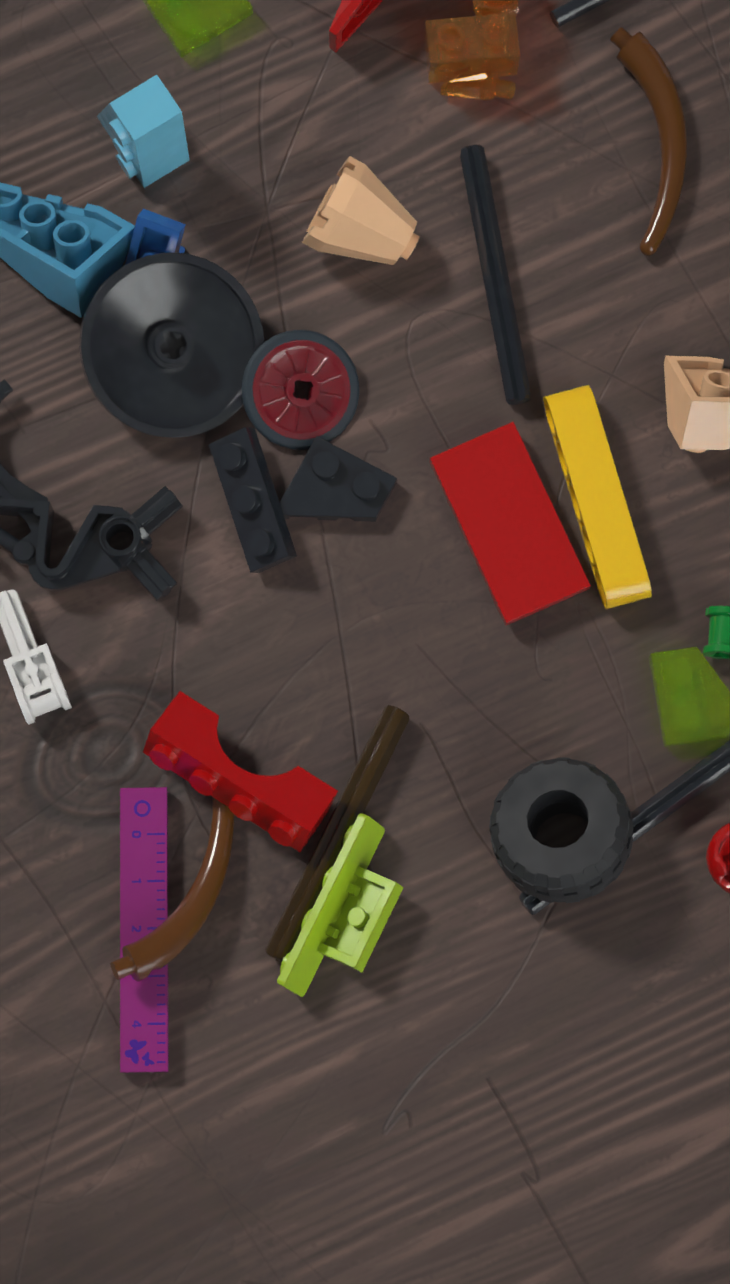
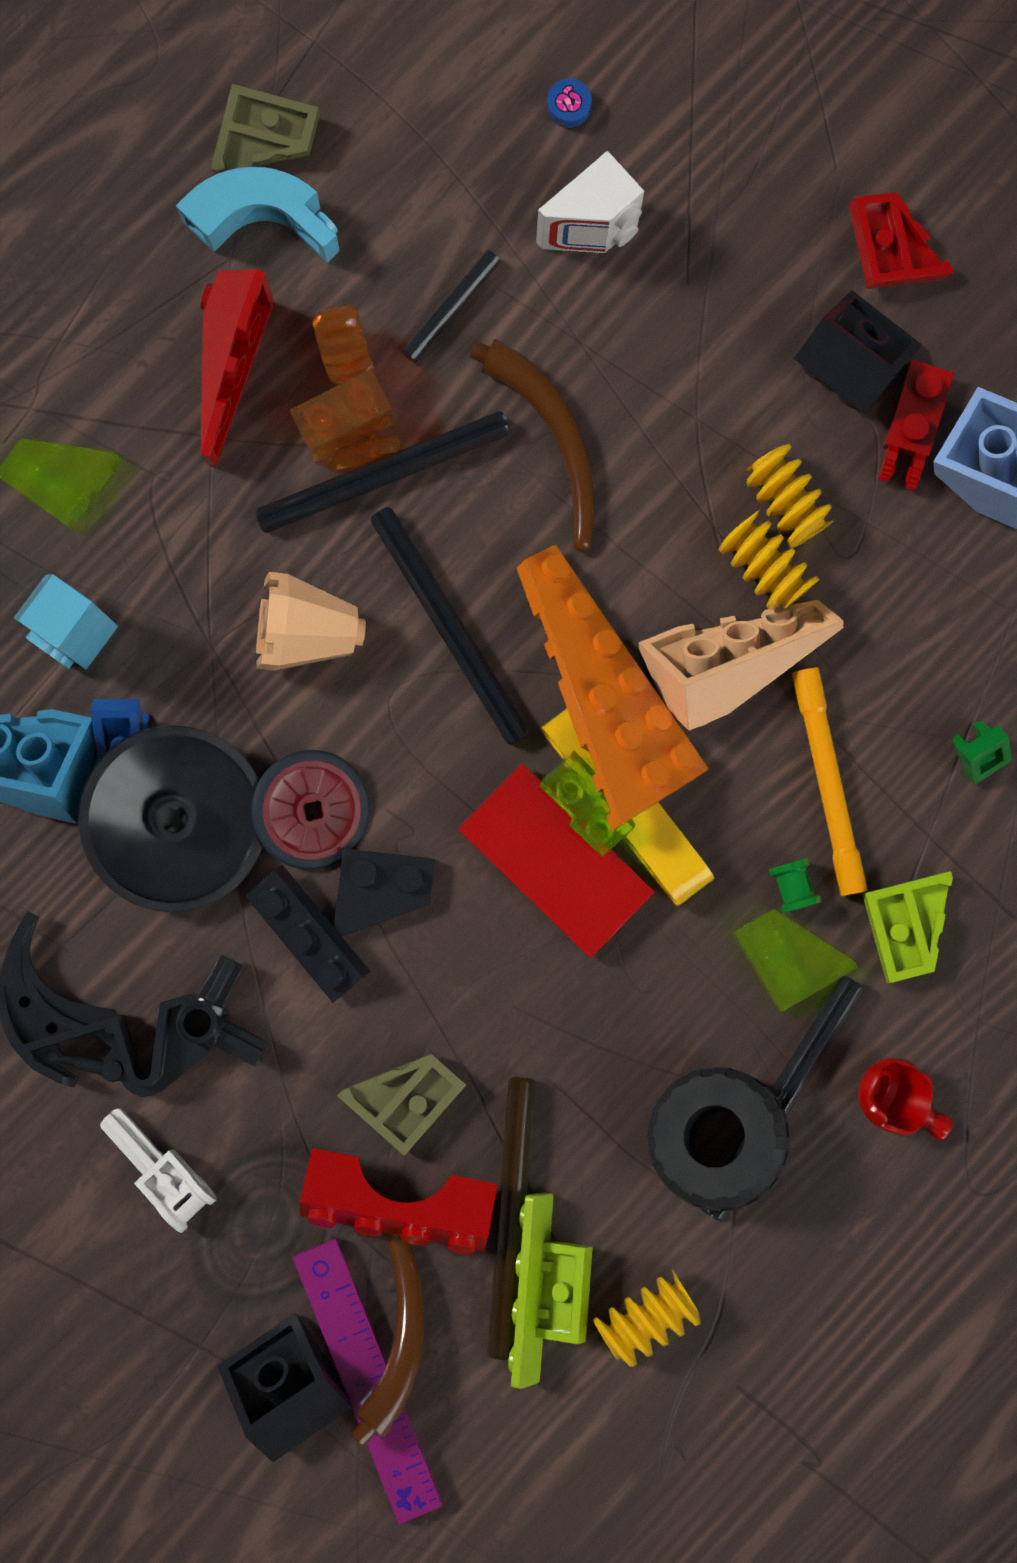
camera: 25 degrees left, 5 degrees up
(64, 903) = (283, 1388): none -> black slope
(282, 685) = (405, 1099): none -> olive wing
(428, 974) = (648, 1320): none -> yellow piece
(489, 112) = (382, 472): none -> black axle
(561, 476) = (574, 790): none -> clear neon green slope
(618, 401) = (612, 705): none -> orange wing

